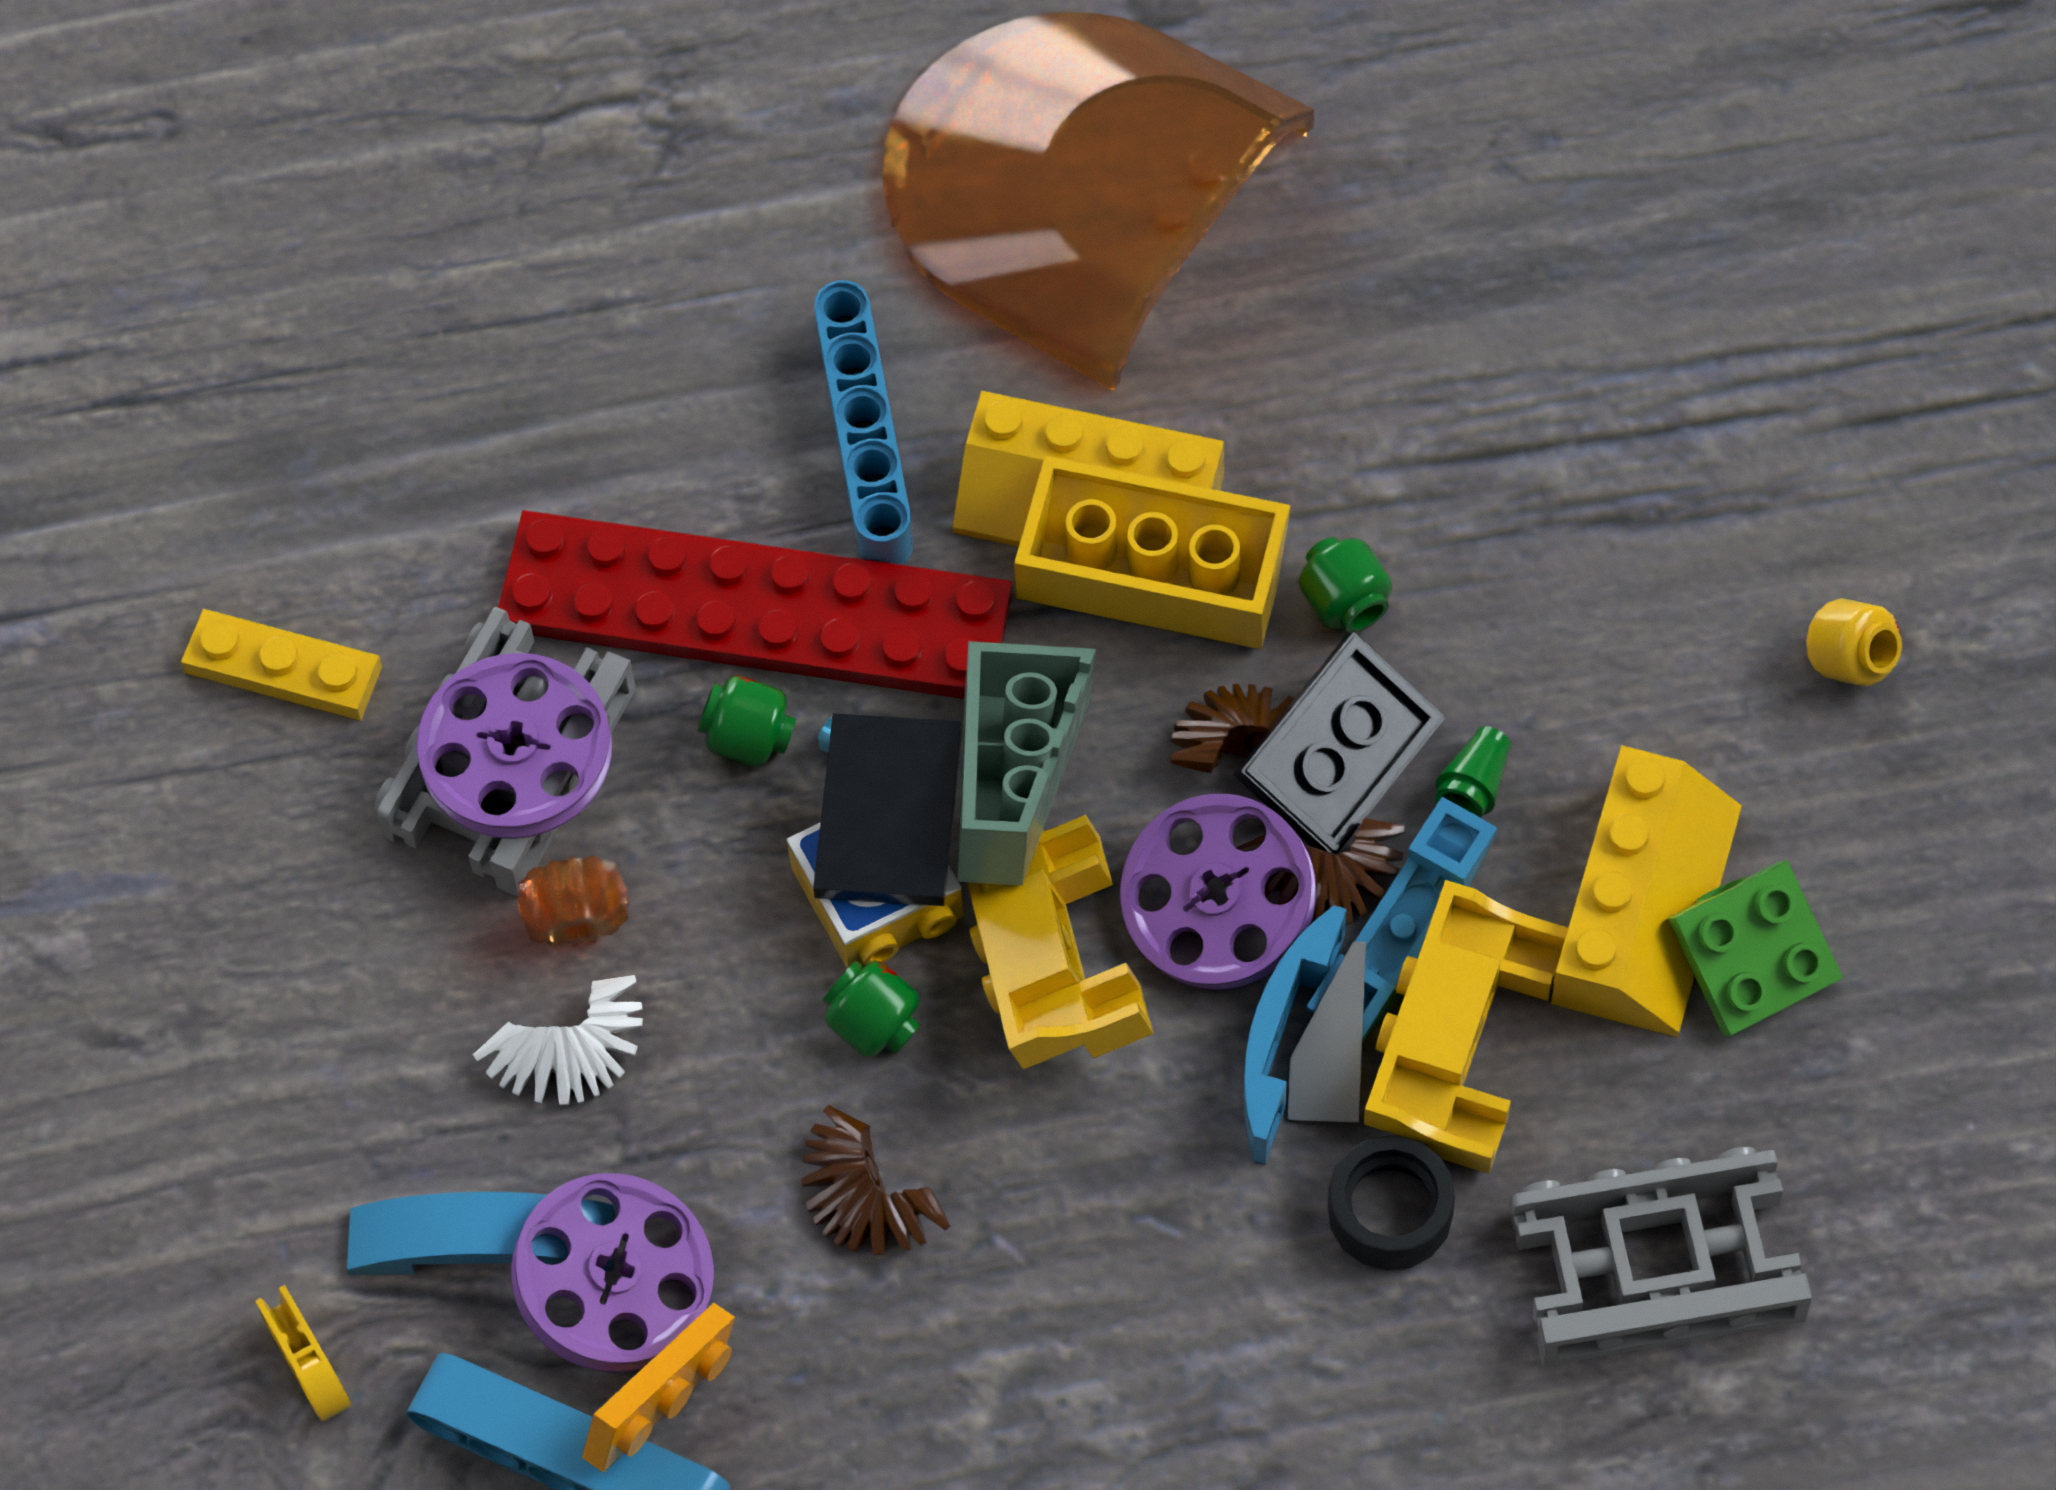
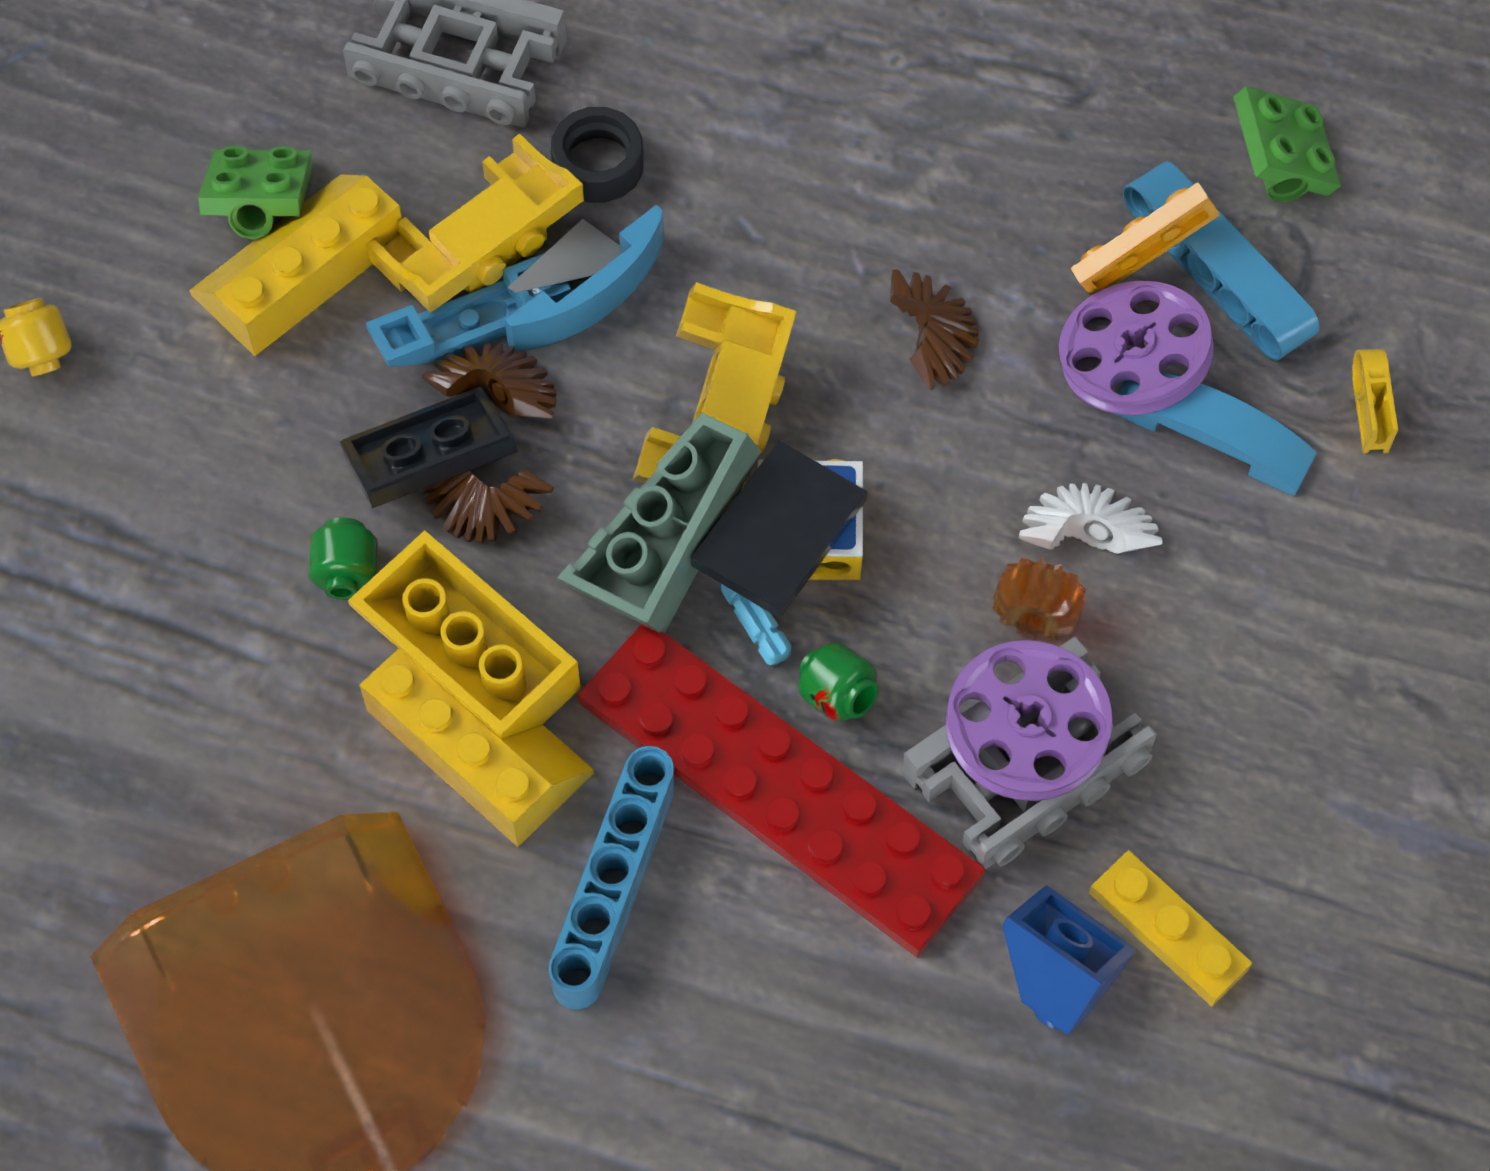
camera: 155 degrees left, 0 degrees up
(372, 570) = (1062, 958): none -> blue slope
(872, 1008) = (864, 431): green head -> none
(1188, 879) = (562, 399): medium lavender wedge -> none
(1475, 772) = (349, 388): green cone -> none

